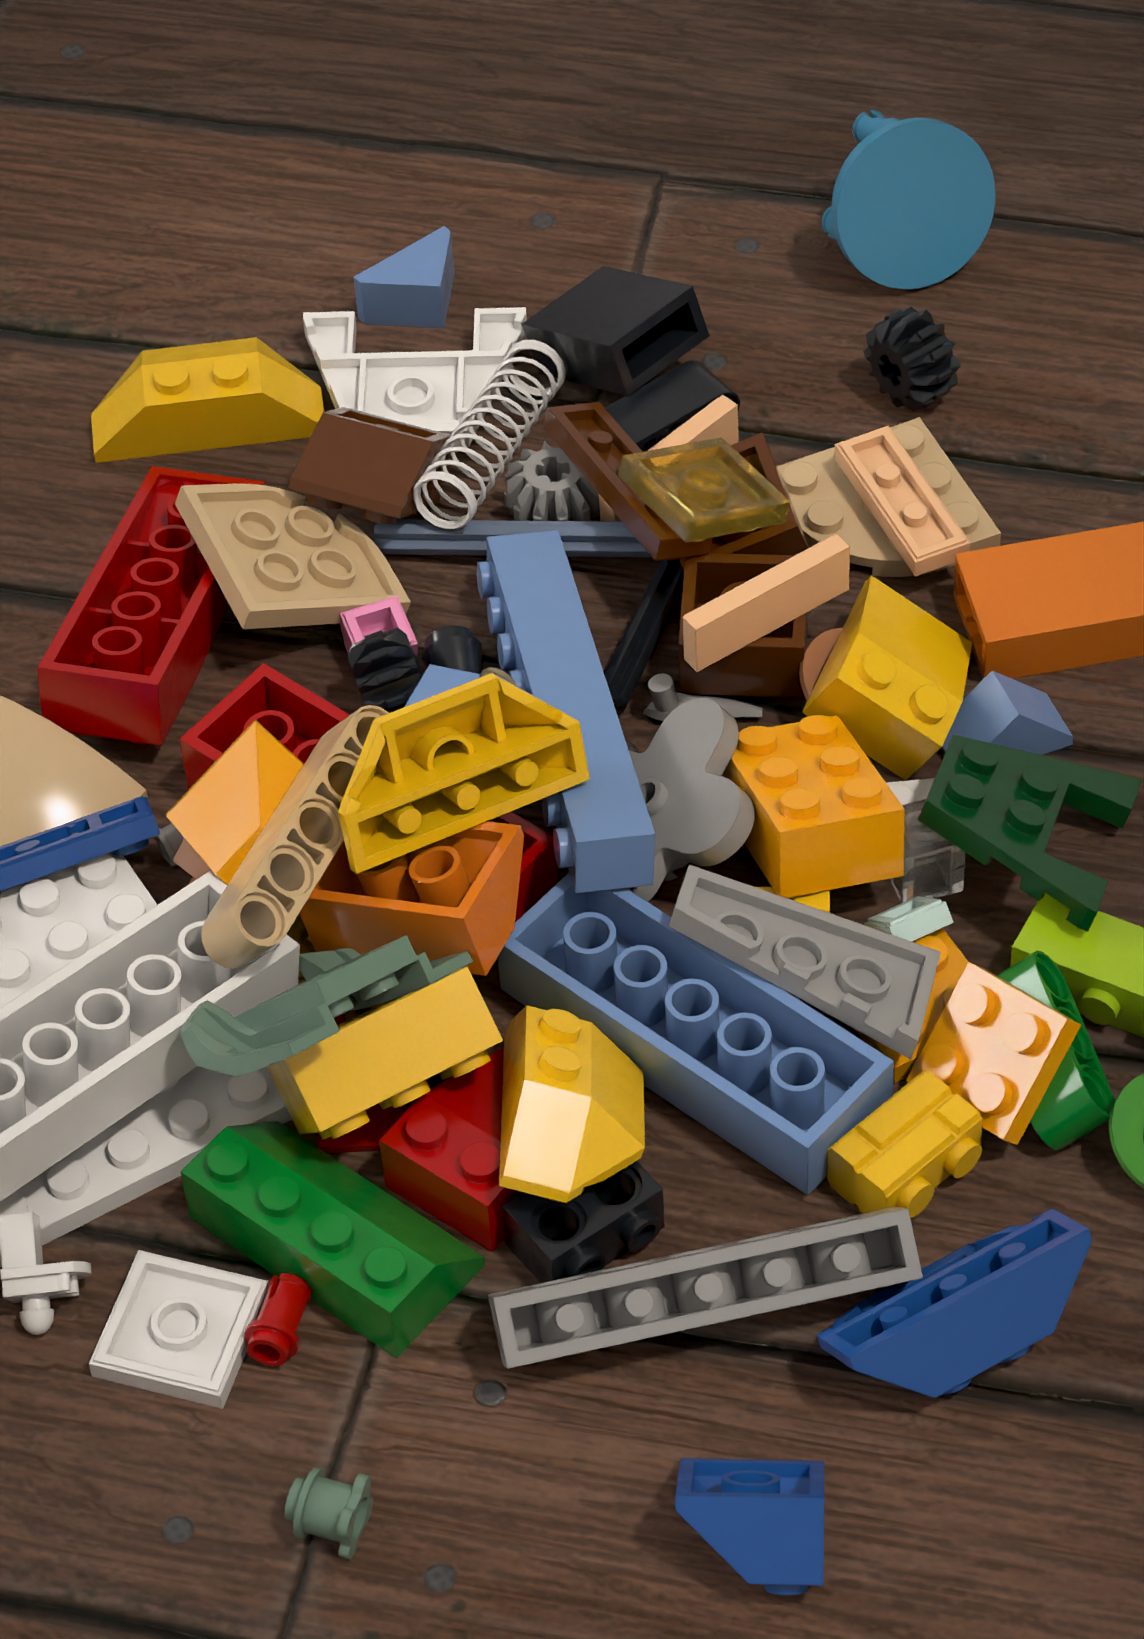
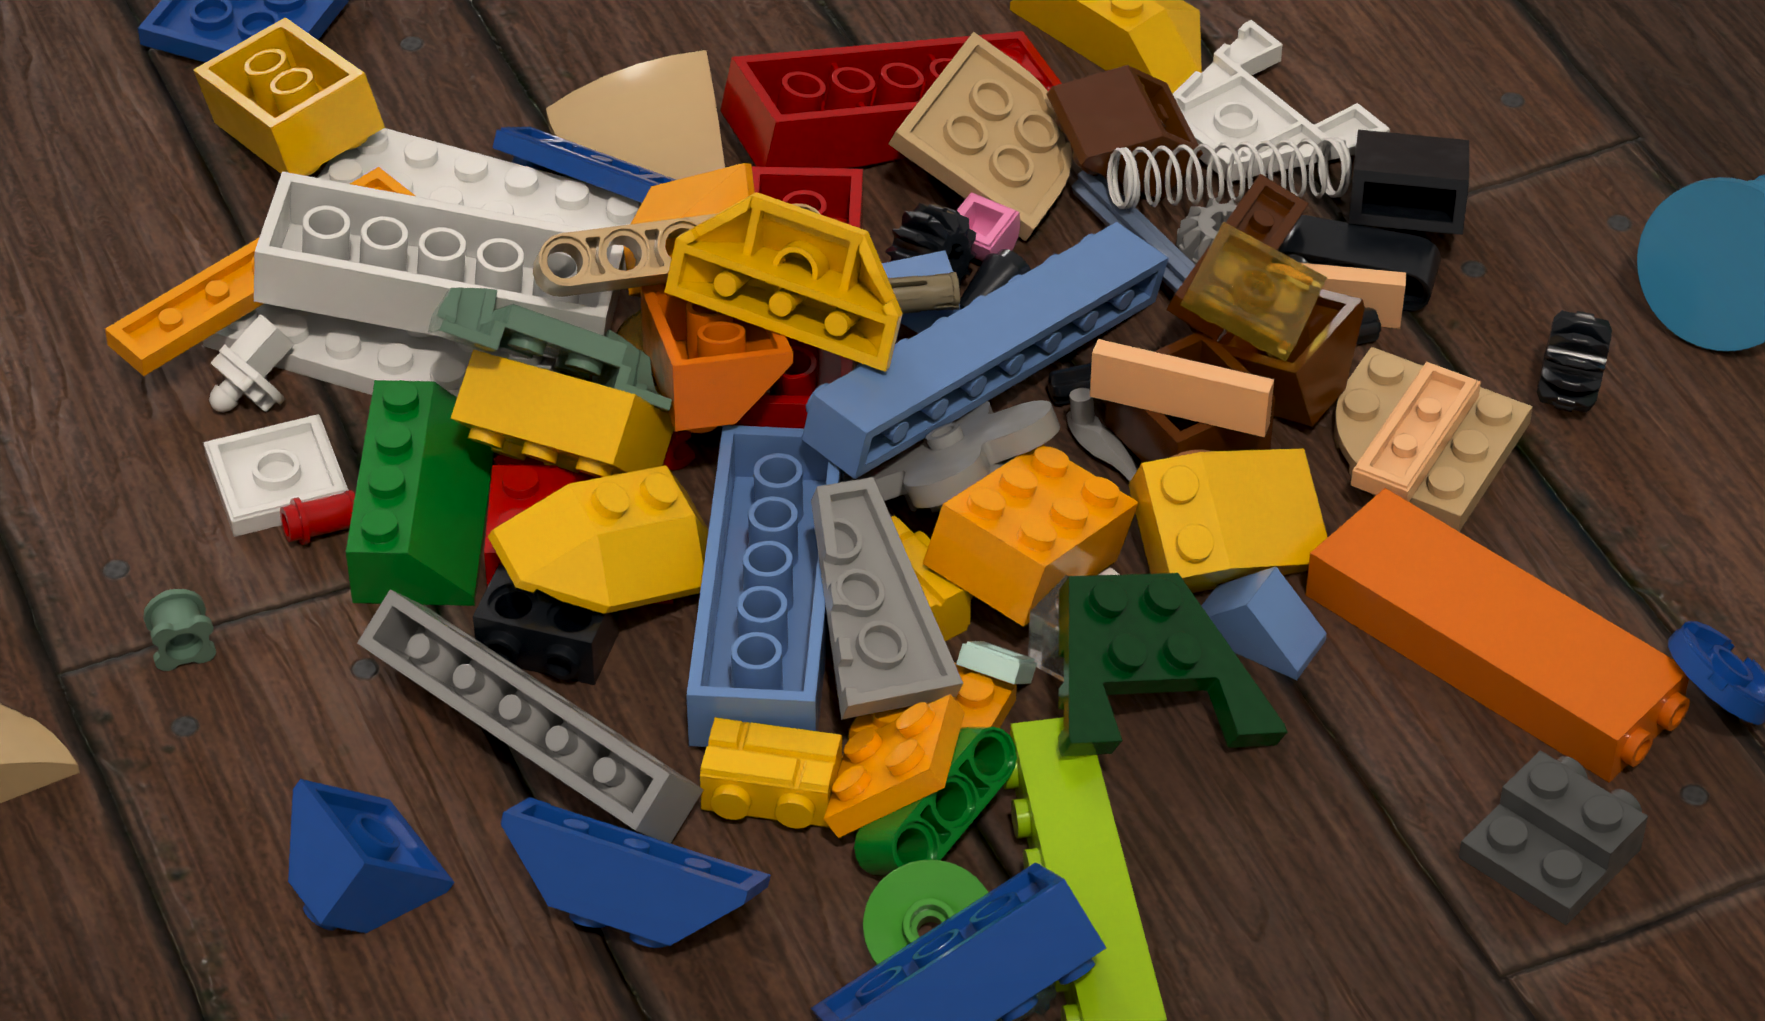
camera: 50 degrees right, 5 degrees down
(409, 285) = (1350, 60): medium blue slope -> none

